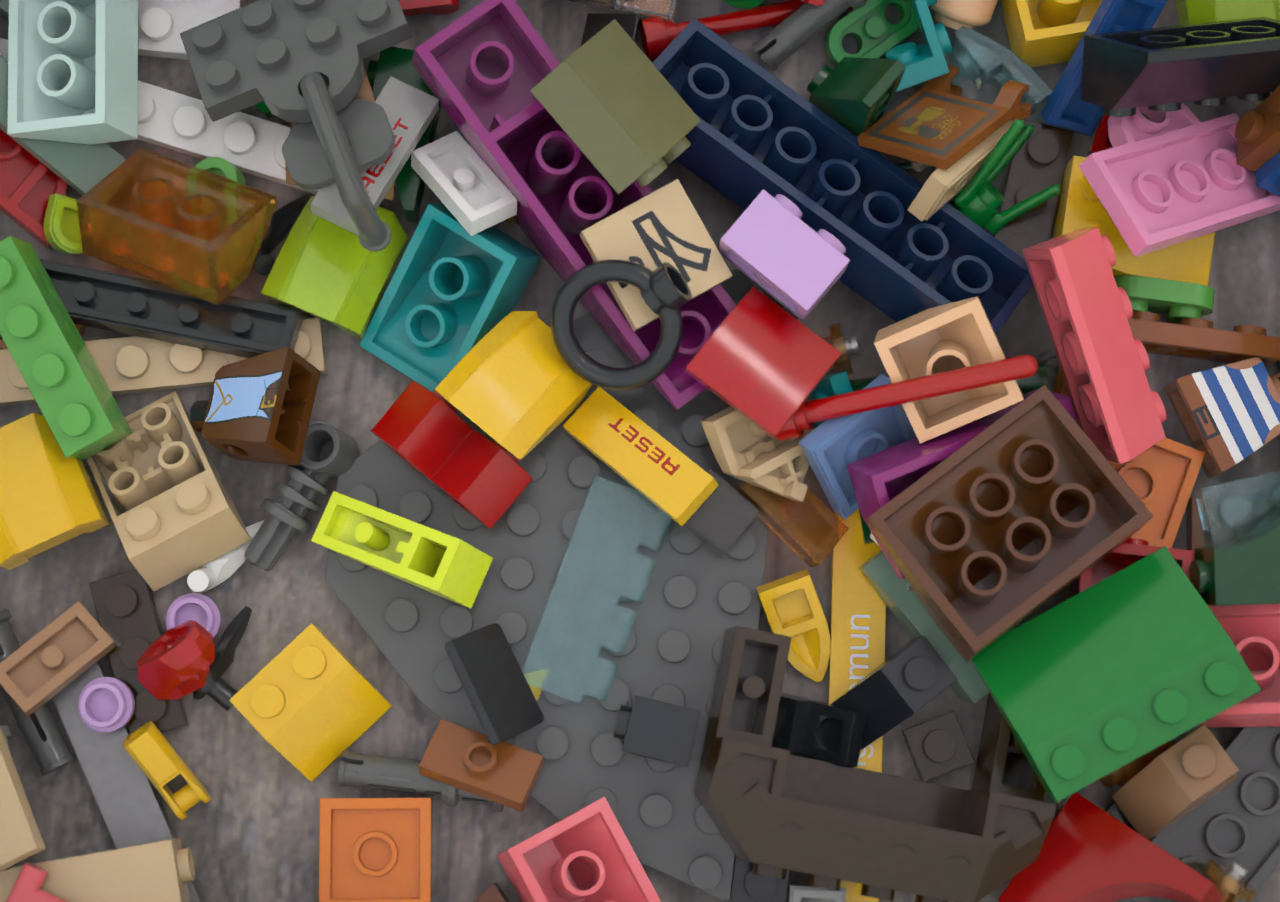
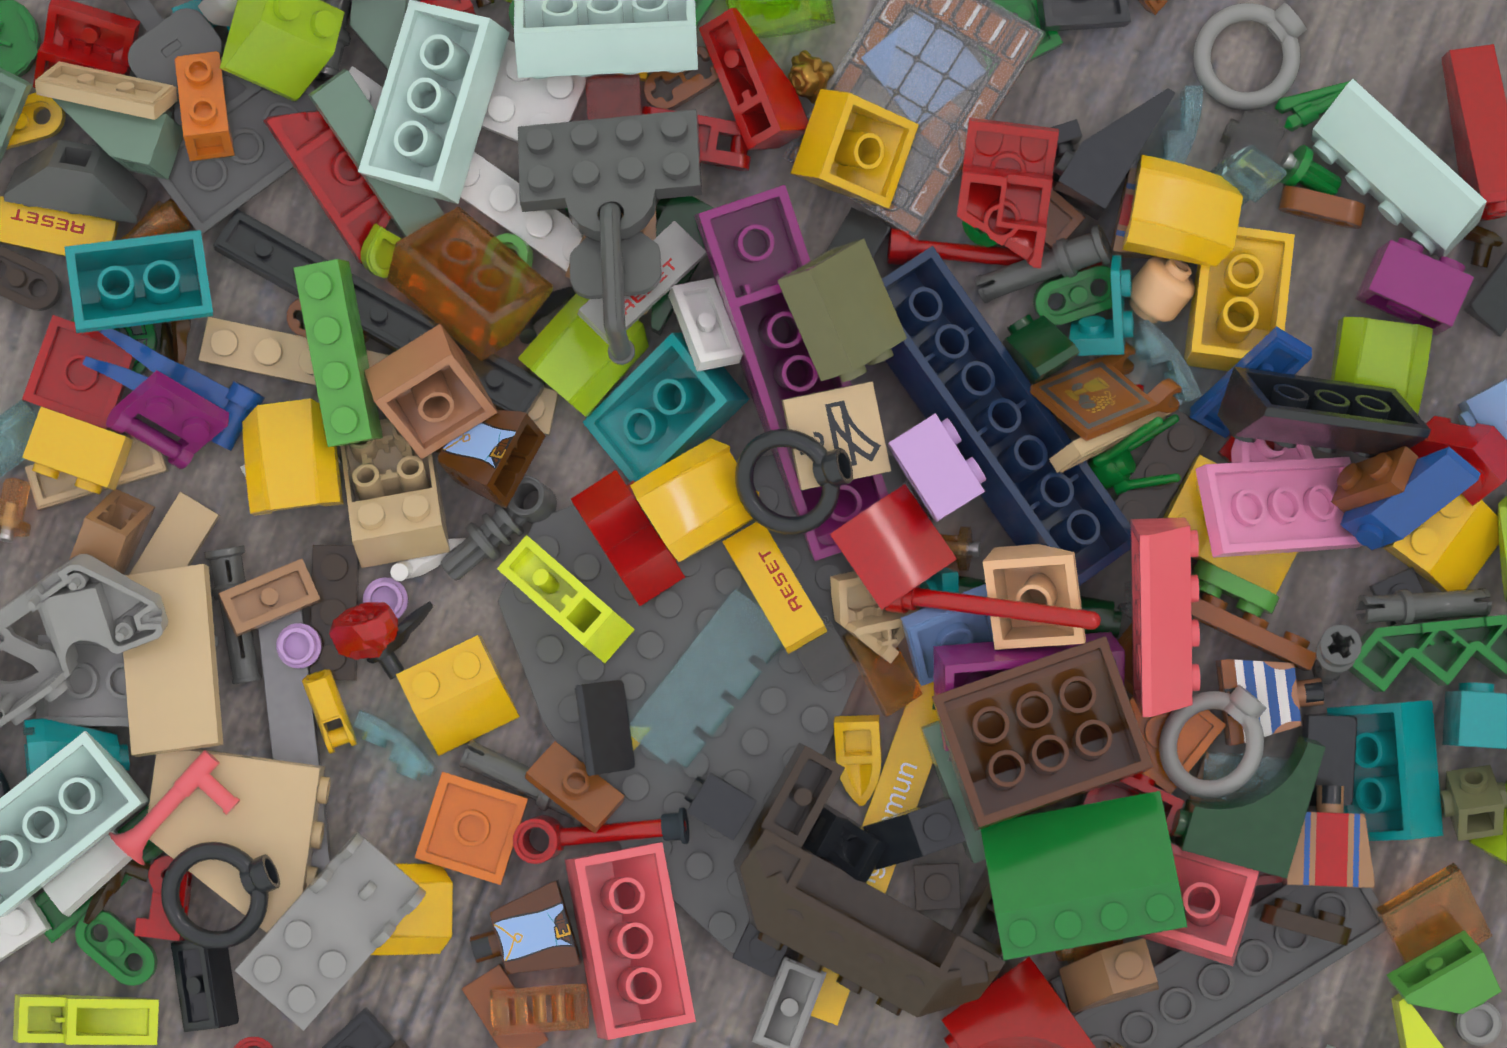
camera: 25 degrees right, 5 degrees up
(168, 359) = (429, 391): none -> nougat slope
(275, 791) = (407, 753): none -> clear light blue slope
(608, 775) = (670, 827): none -> red piece
(1221, 422) = (1245, 710): none -> light grey piece

